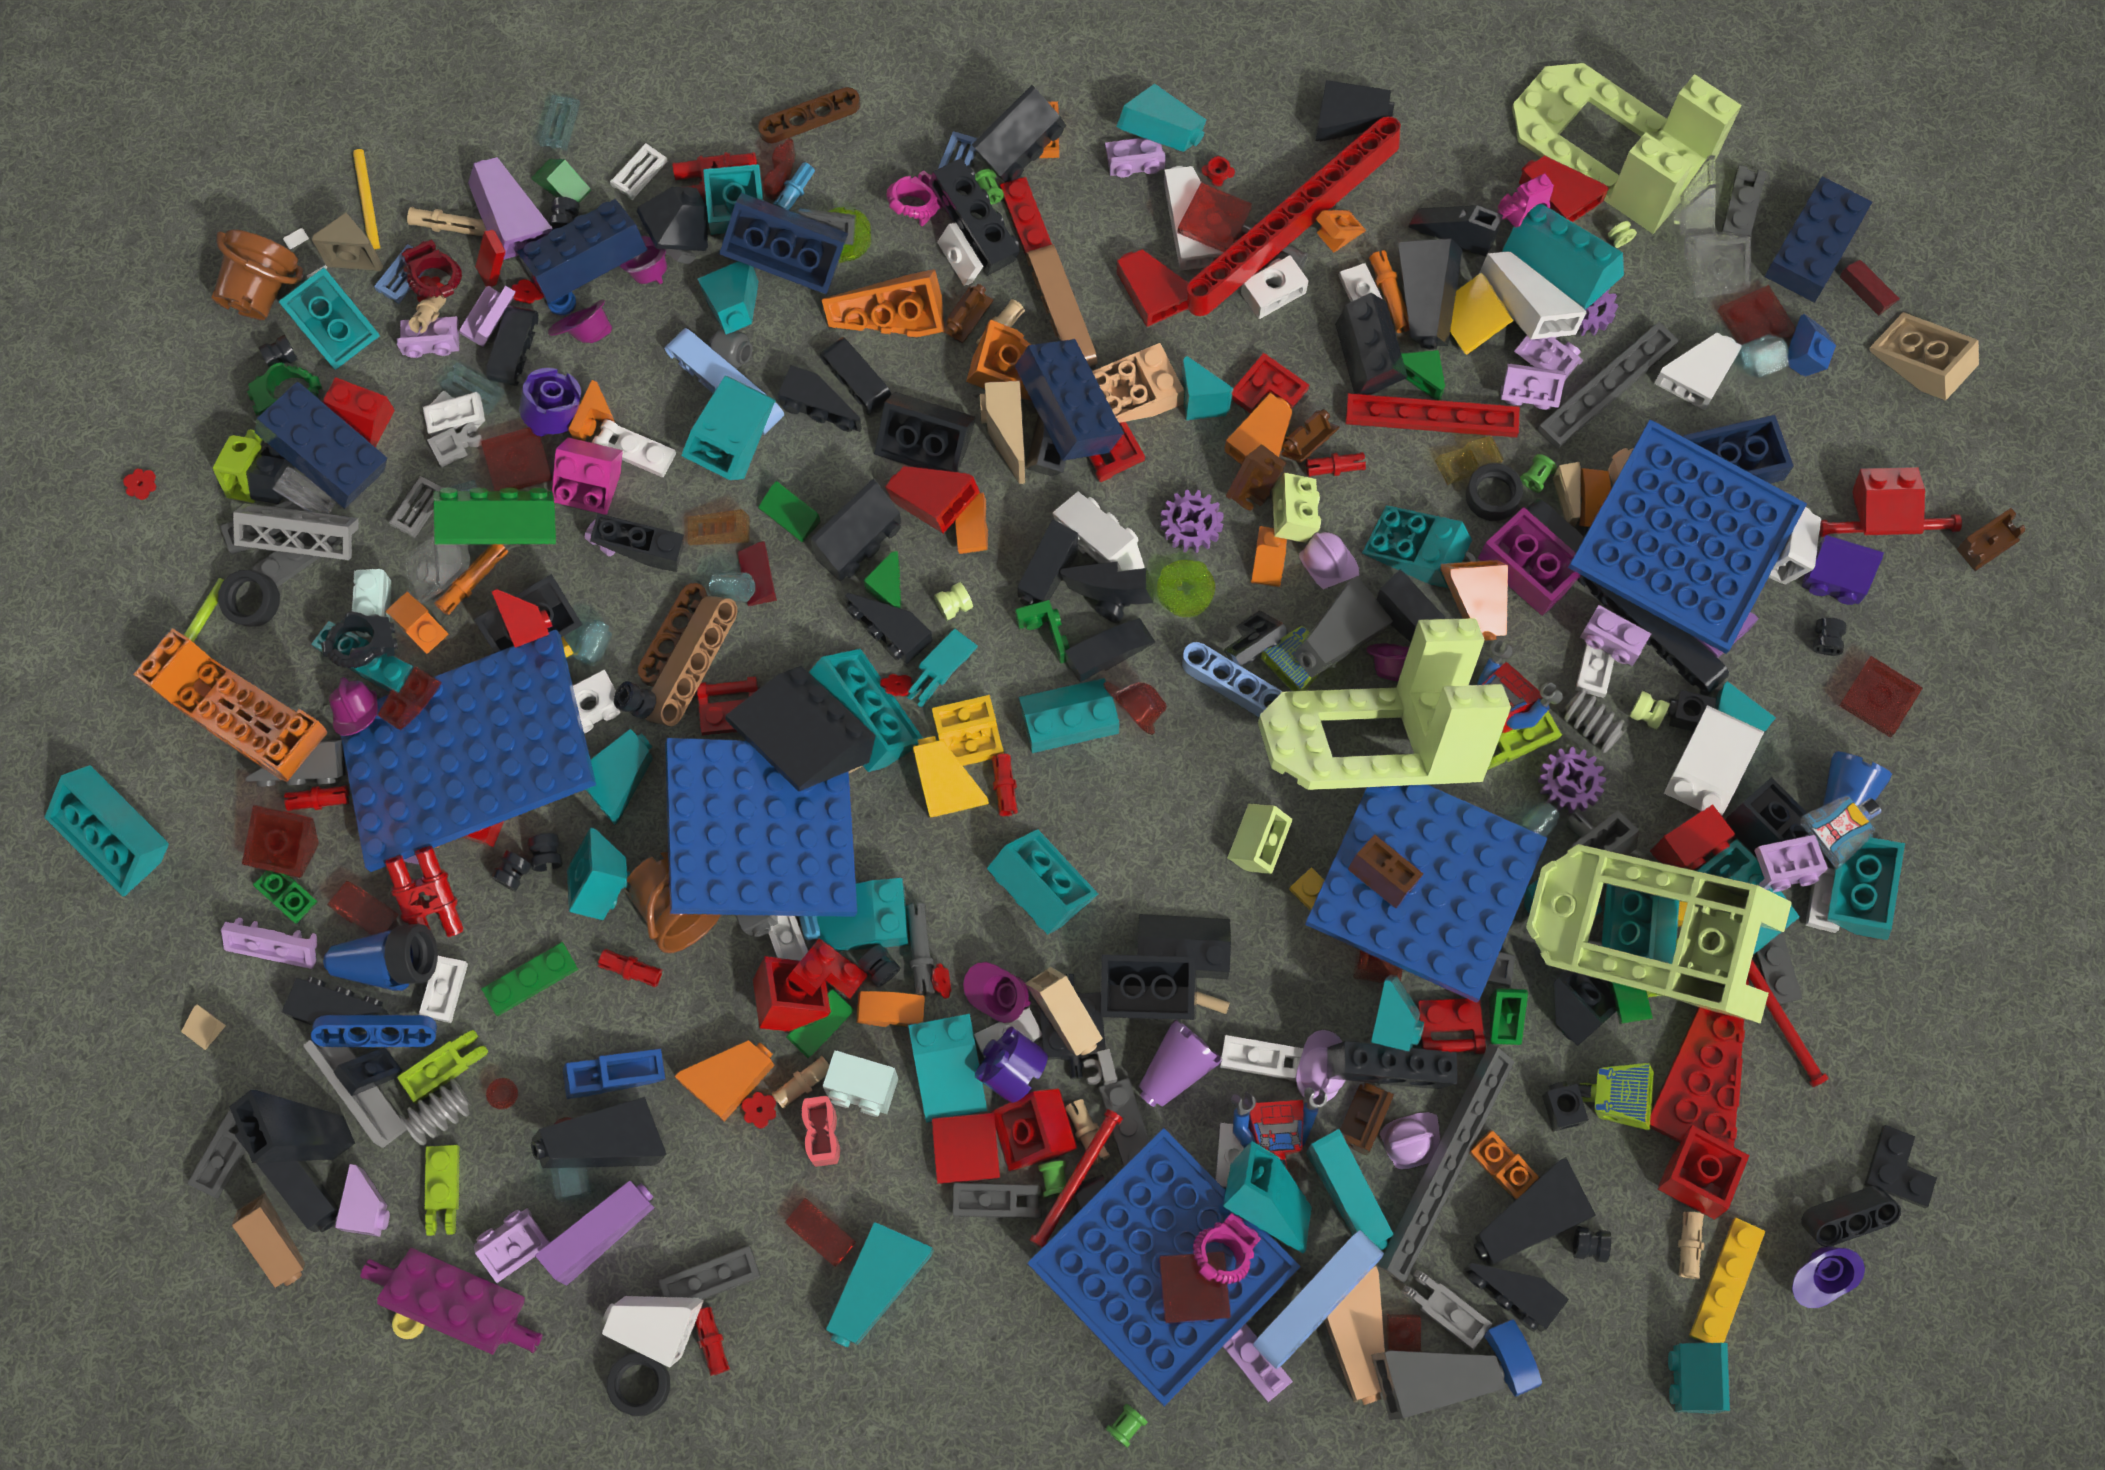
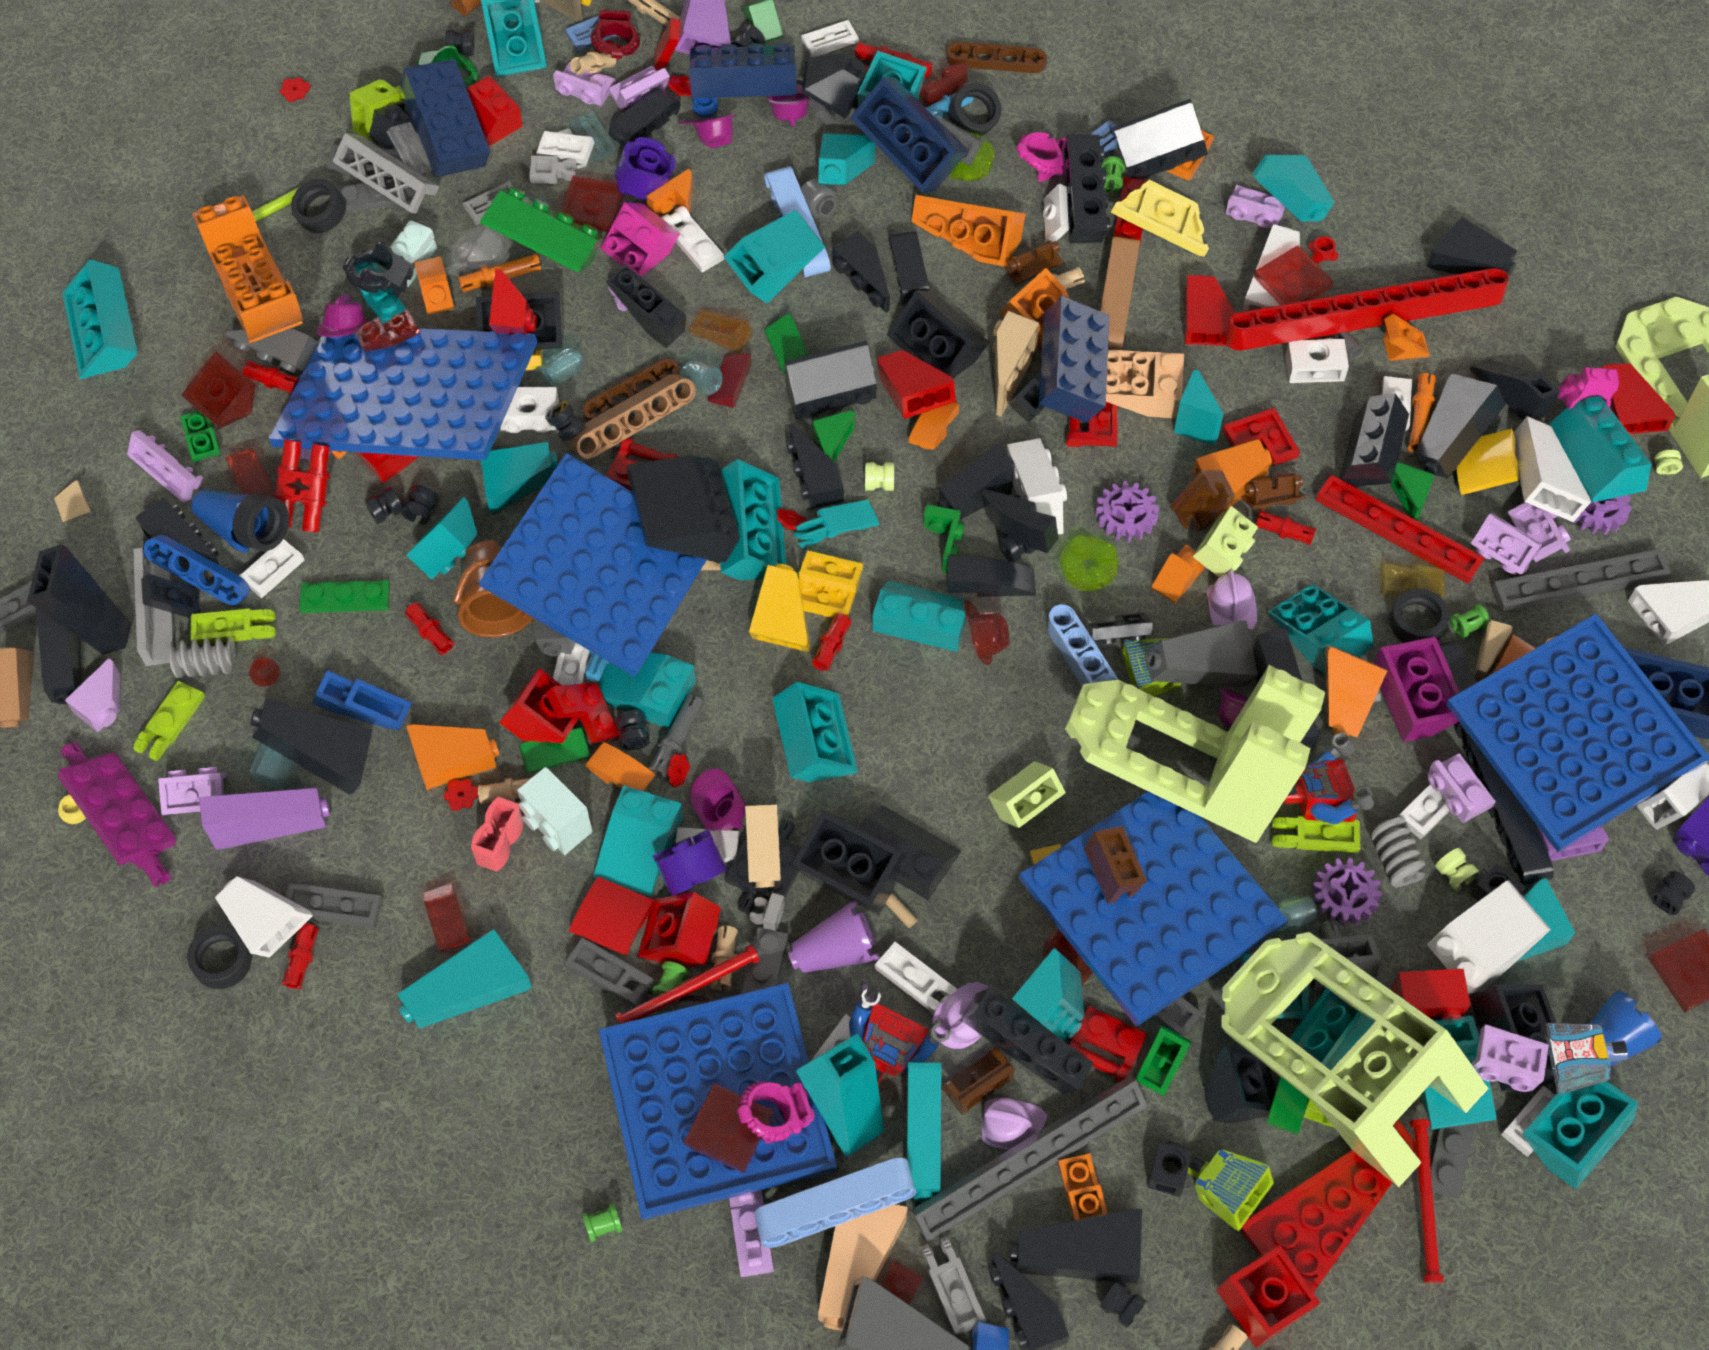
camera: 30 degrees right, 10 degrees down
(837, 169) = (982, 93): none -> black tyre
(1061, 207) = (1164, 215): none -> light yellow wing

